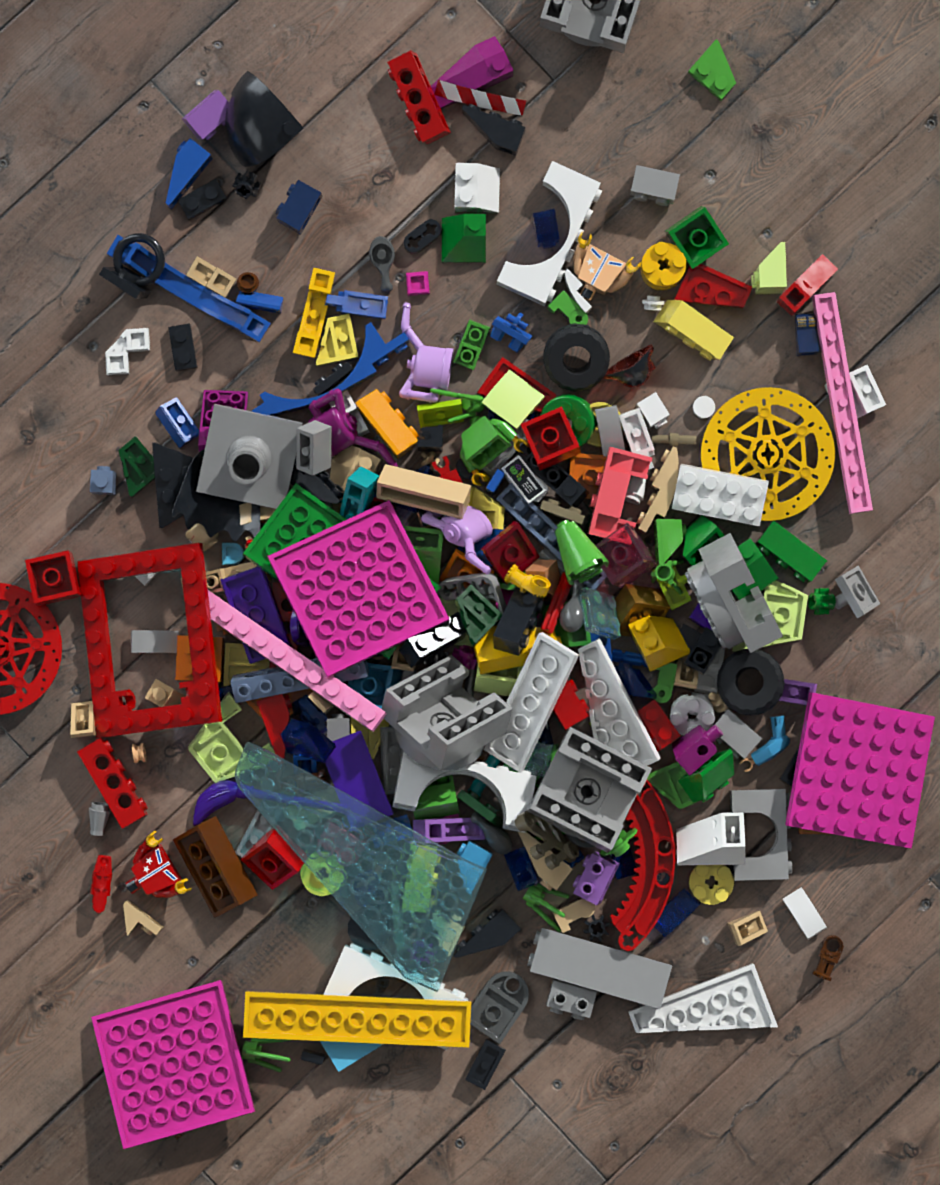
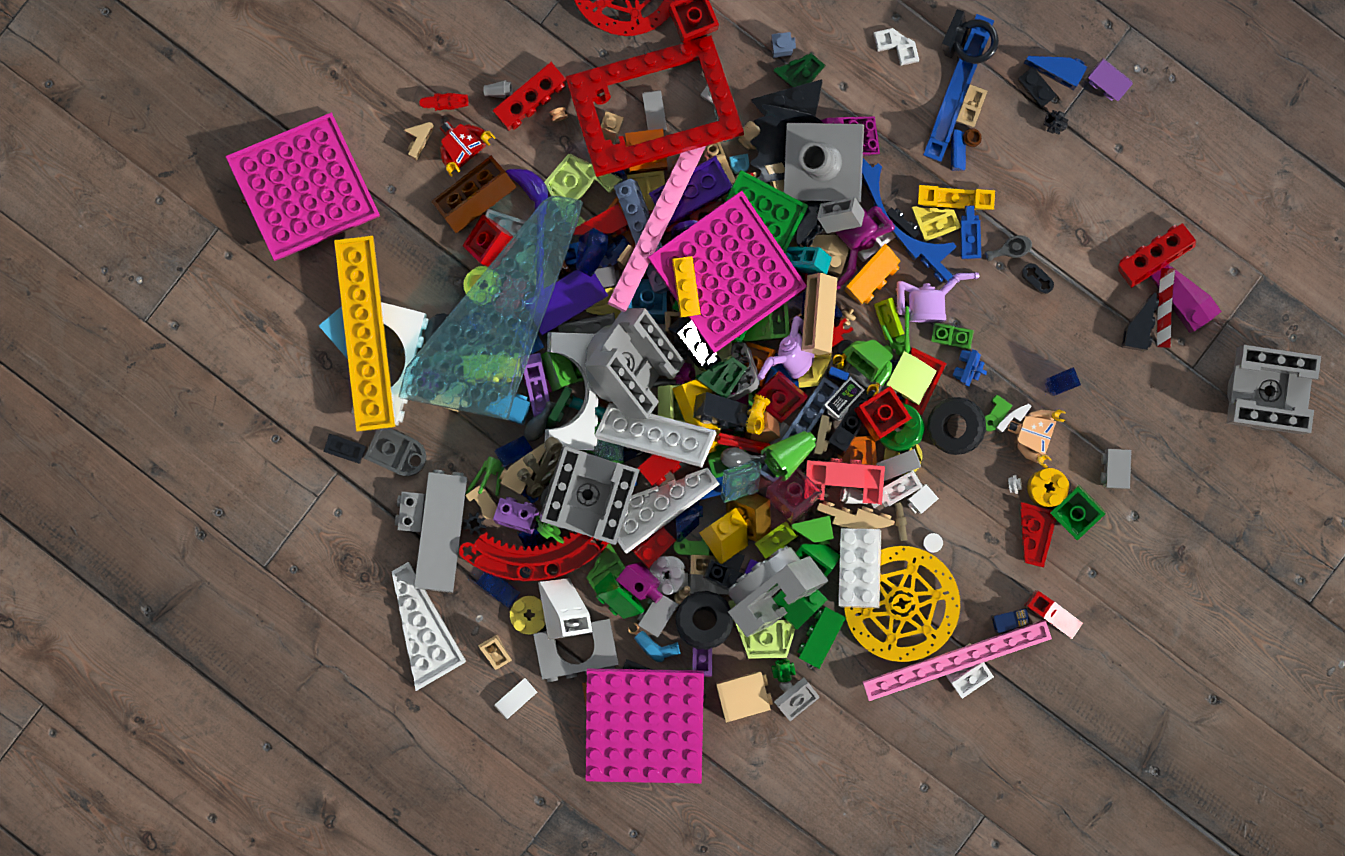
camera: 80 degrees right, 0 degrees up
(82, 720) = (578, 62): tan slope -> none
(177, 422) = (843, 98): blue slope -> none
(182, 347) = (907, 92): black plate -> none
(253, 1052) = (324, 252): bright green plant -> none
(257, 122) = (1111, 120): black brick -> none
(298, 206) = (1045, 169): dark blue brick -> none
(312, 1056) = (328, 299): black tile -> none
(368, 638) = (686, 286): none -> yellow plate
(417, 283) = (996, 281): dark pink tile -> none
(433, 439) = (865, 316): black hinge -> none
(464, 238) = (1042, 314): green slope -> none
(476, 188) = (1087, 317): white slope -> none
(493, 934) = (455, 438): black slope -> none
(538, 280) = (1017, 383): white arch -> none
(628, 657) = (707, 512): blue axle -> none
(633, 369) = (955, 477): hat -> none
(666, 574) = (784, 532): bright green plant -> none
(693, 329) = (998, 522): light yellow wedge -> none
(714, 71) = (1224, 504): bright green wing -> none
(771, 273) = (1058, 580): yellowish green slope -> none
(828, 958) = (481, 726): reddish brown connector -> none
(844, 651) = (744, 696): none -> tan slope

